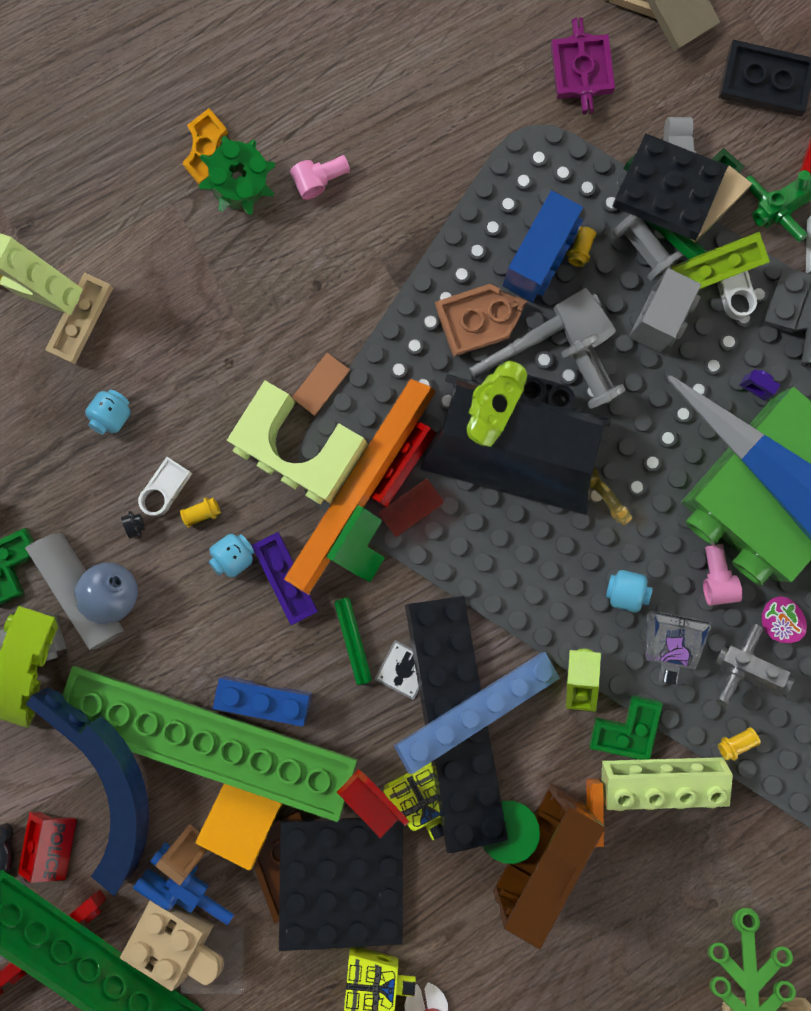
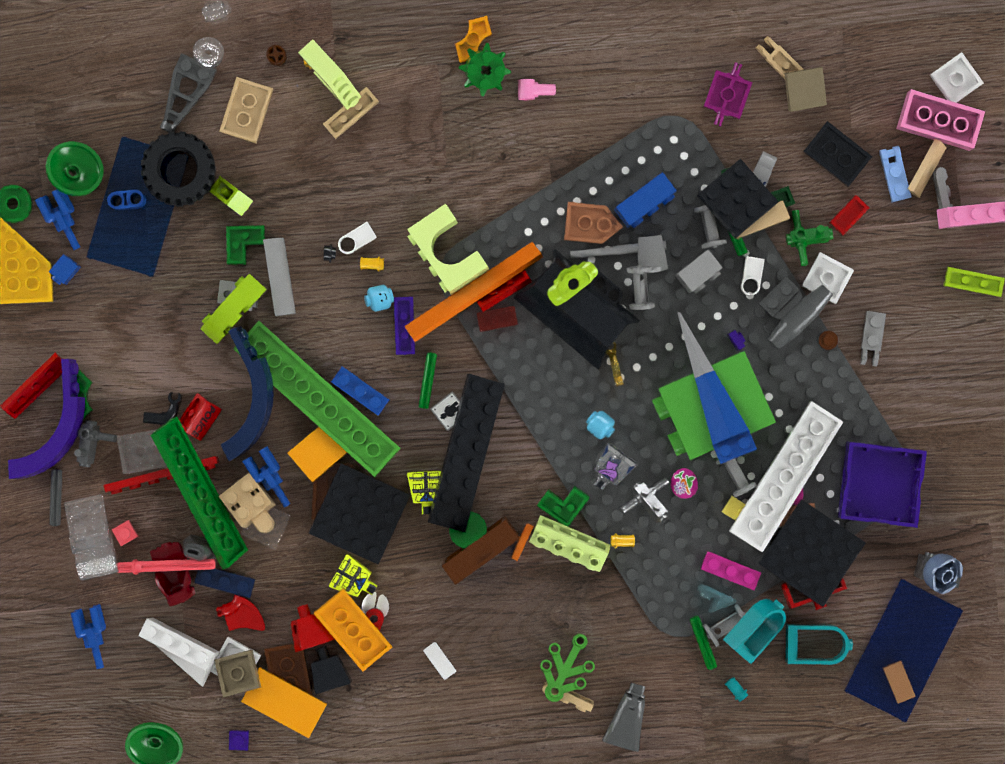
camera: 25 degrees right, 5 degrees up
(106, 593) = (298, 287): sand blue cylinder -> none
(108, 412) = (343, 179): medium azure head -> none
(182, 856) = (278, 456): medium nougat tile -> none
(320, 384) = (477, 219): nougat tile -> none
(351, 546) = (451, 326): green tile -> none
(370, 803) = (398, 475): red panel -> none
(476, 713) = (481, 453): medium blue plate -> none
(580, 251) = (668, 212): yellow pin -> none
(583, 680) = (550, 463): lime slope -> none
(721, 585) = (657, 445): bright pink pin -> none
(725, 261) = (745, 258): lime plate -> none

